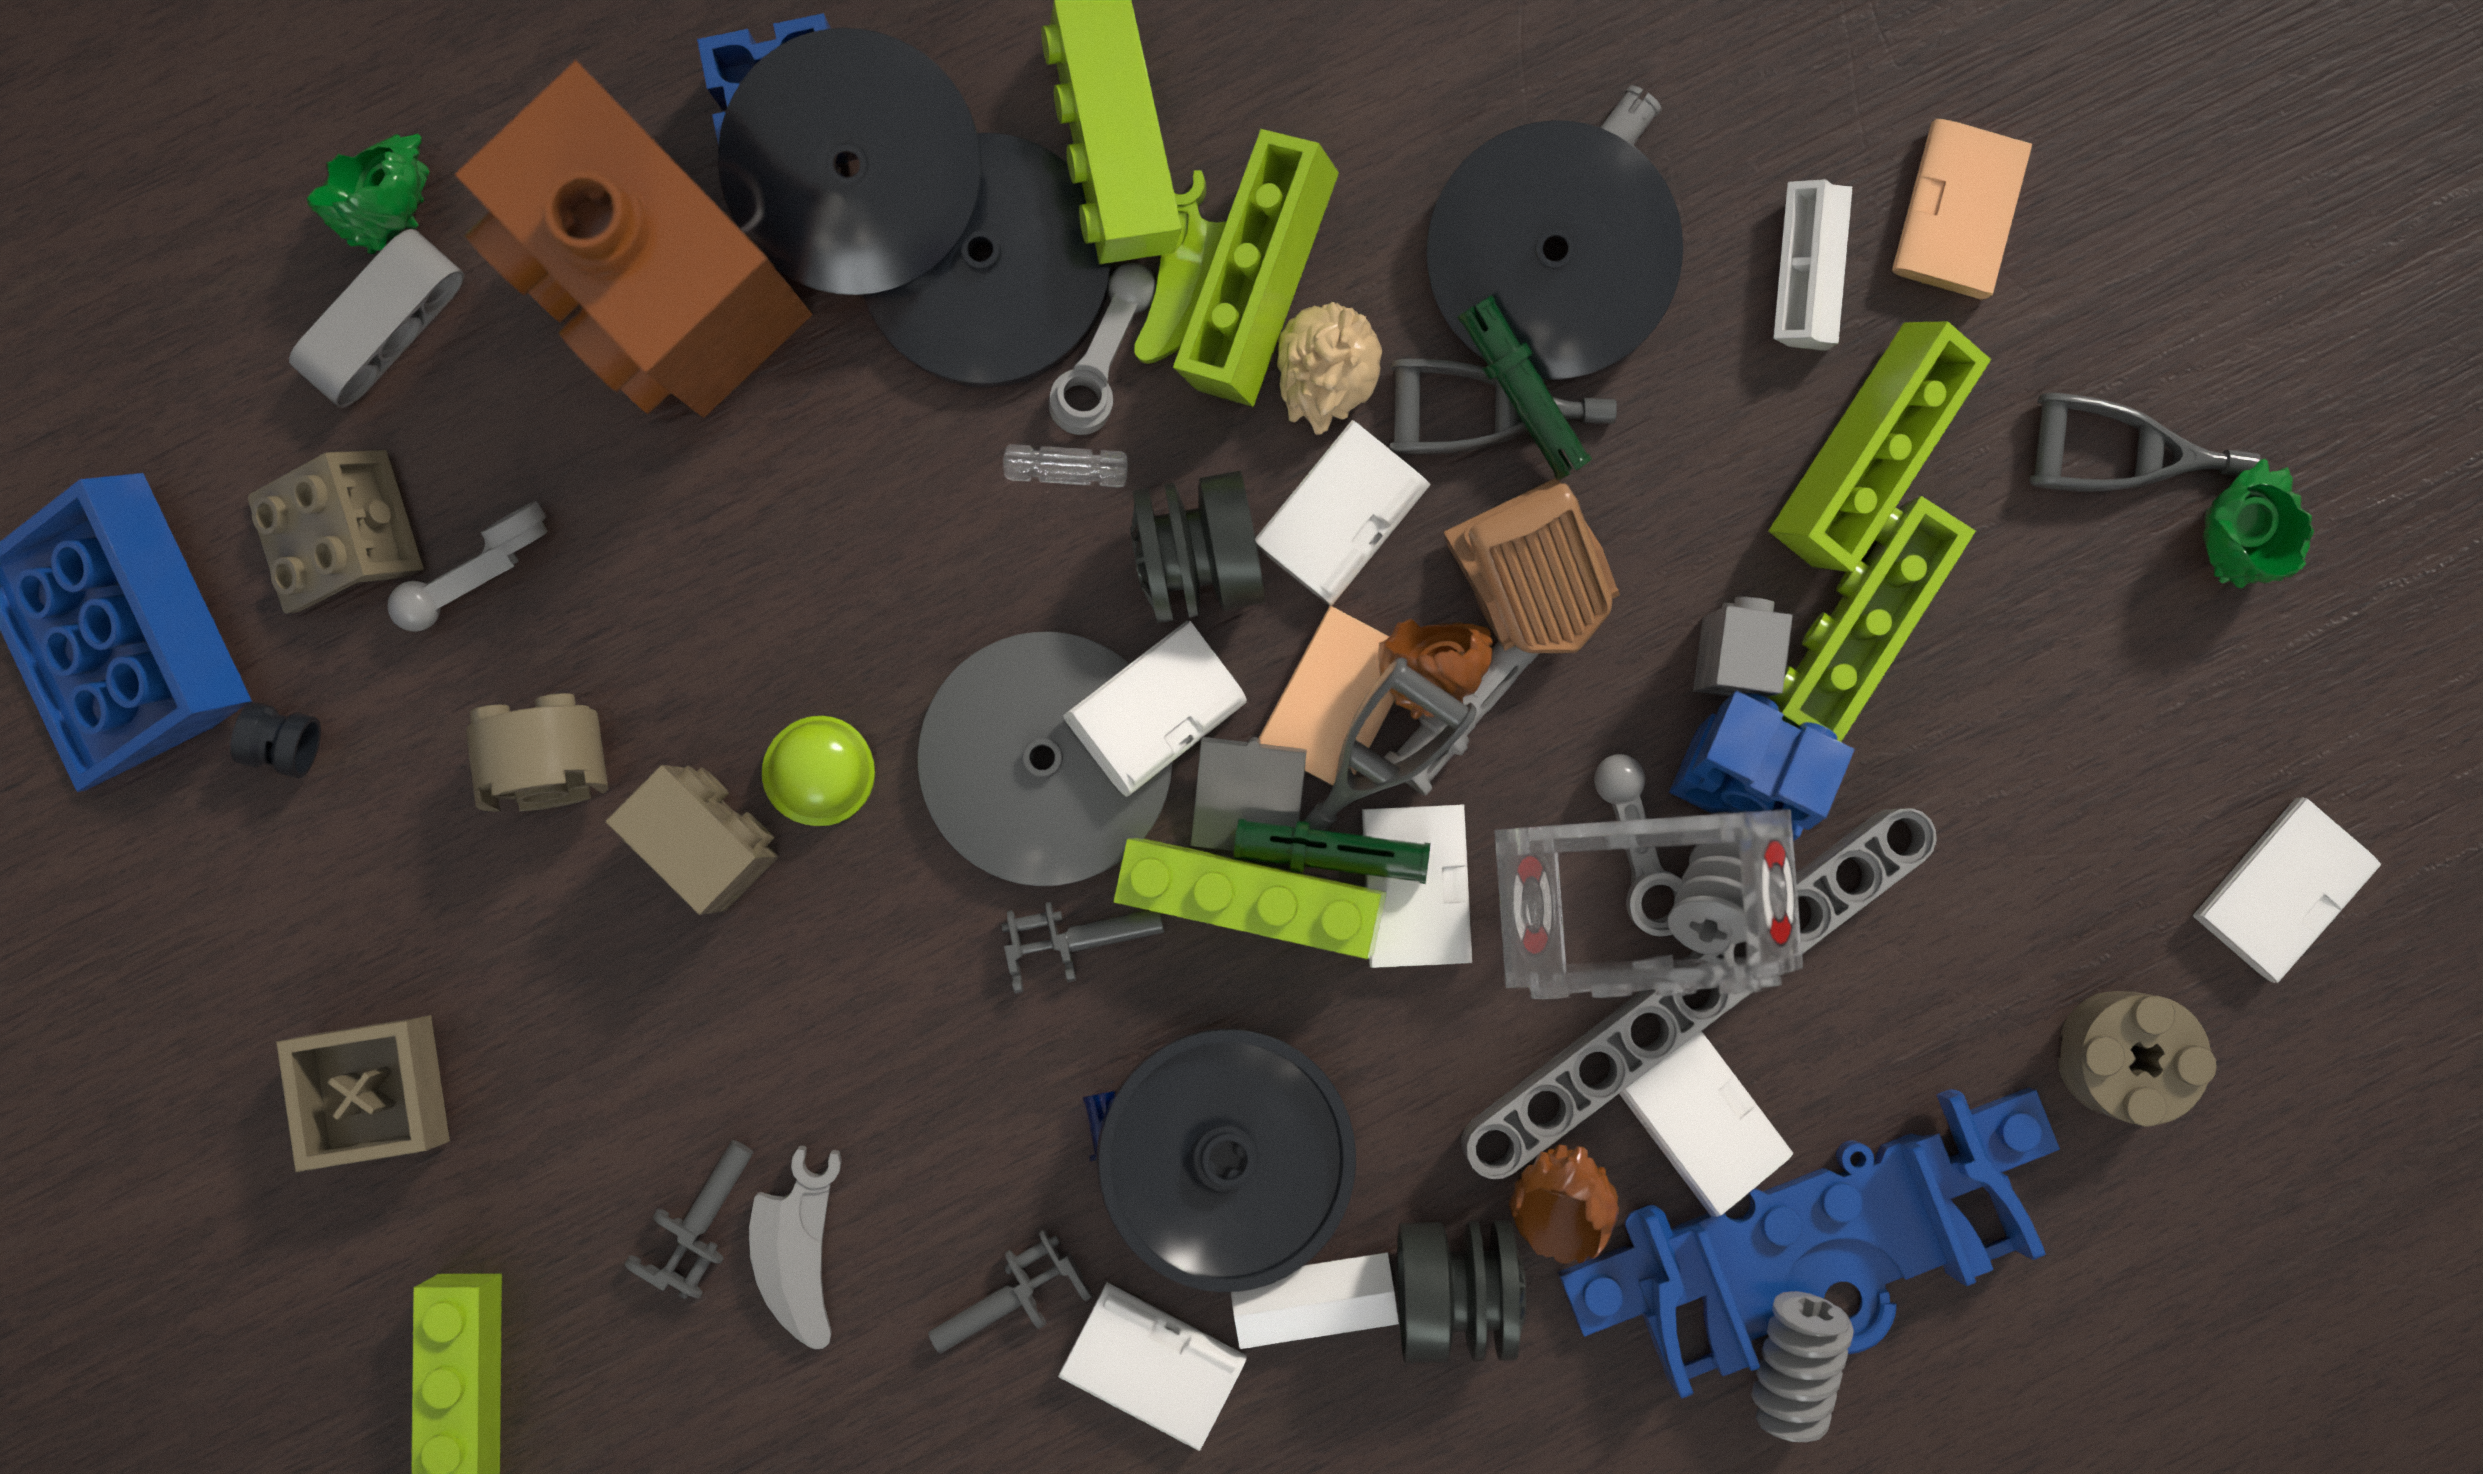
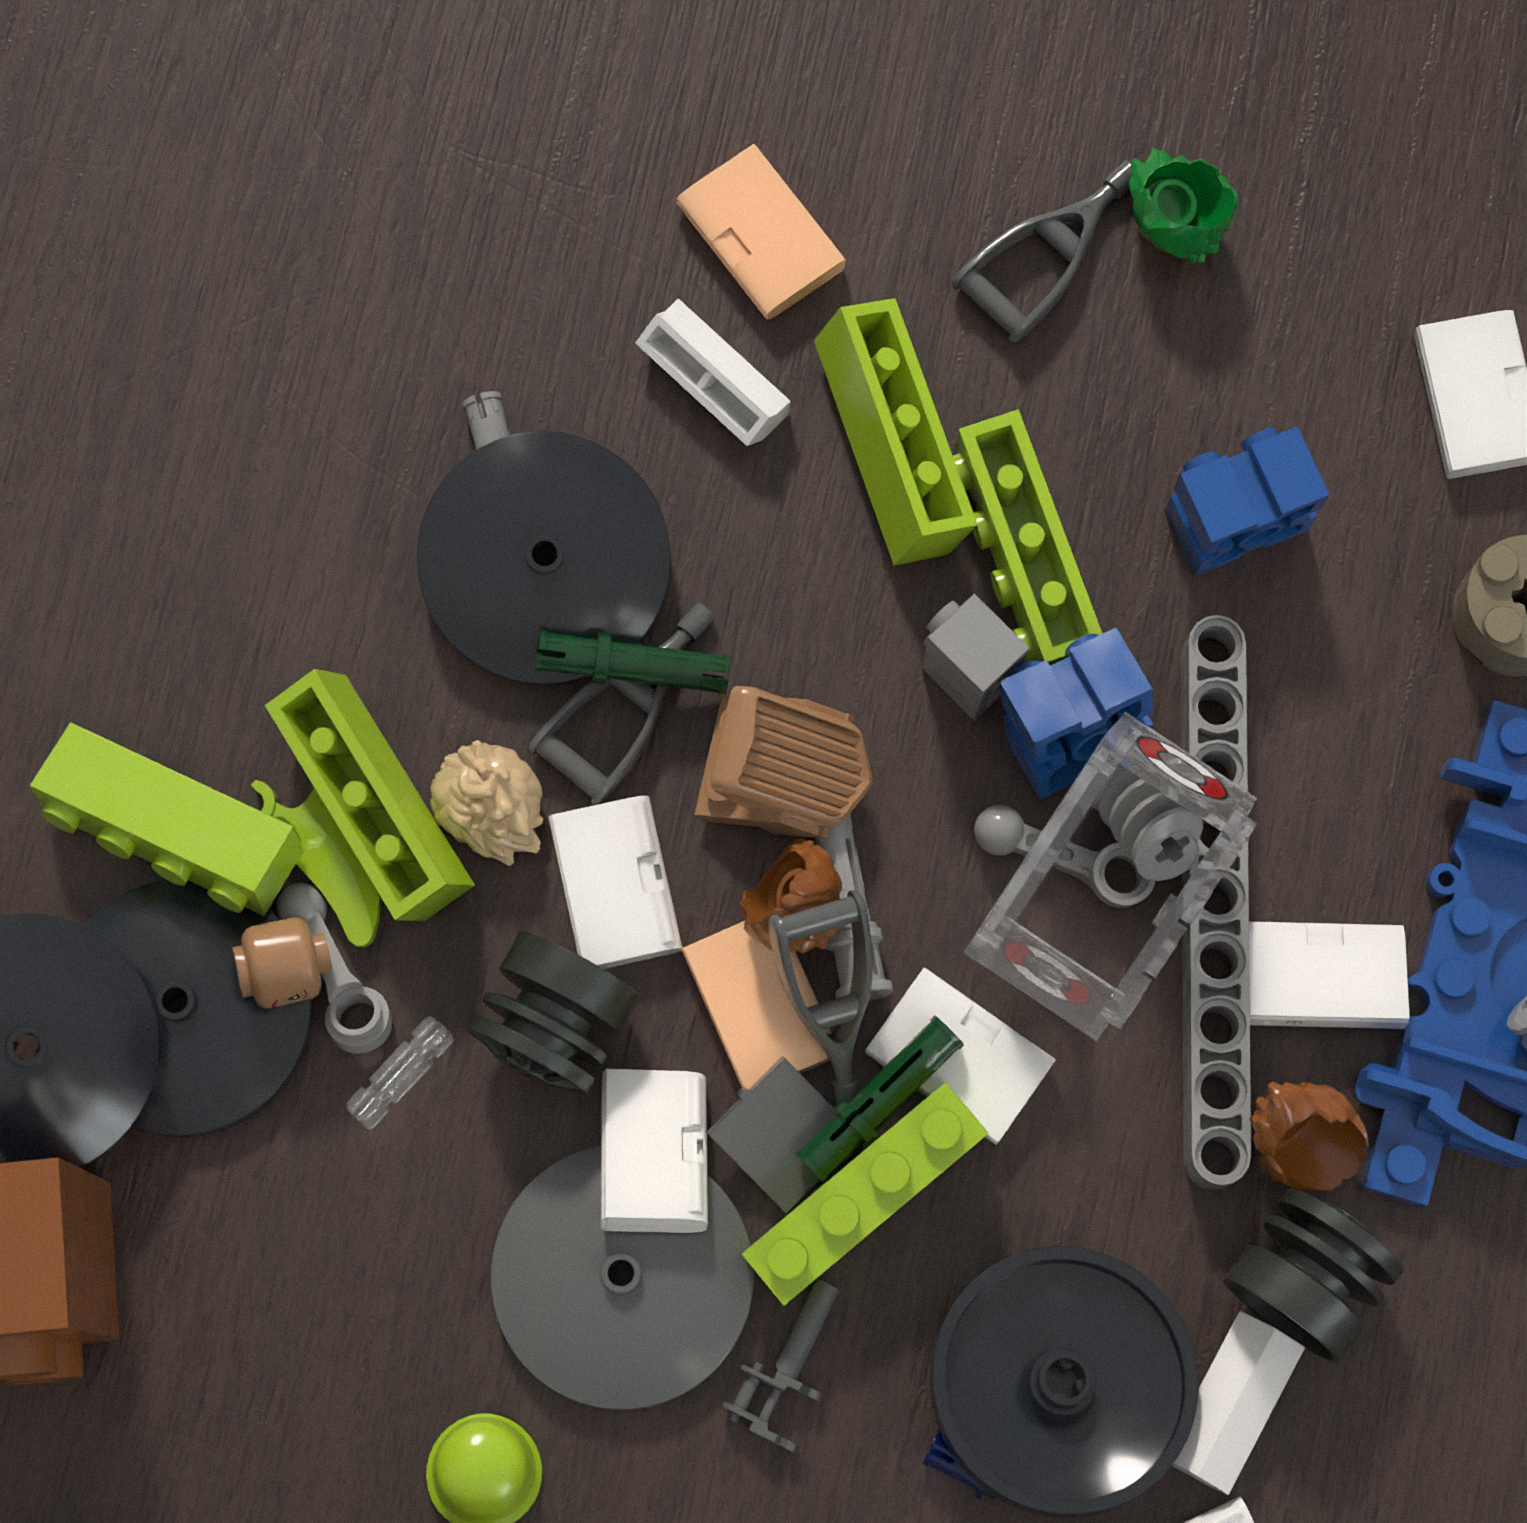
camera: 50 degrees left, 10 degrees down
(1072, 306) = (281, 962): none -> medium nougat head
(2046, 770) = (1245, 499): none -> blue brick

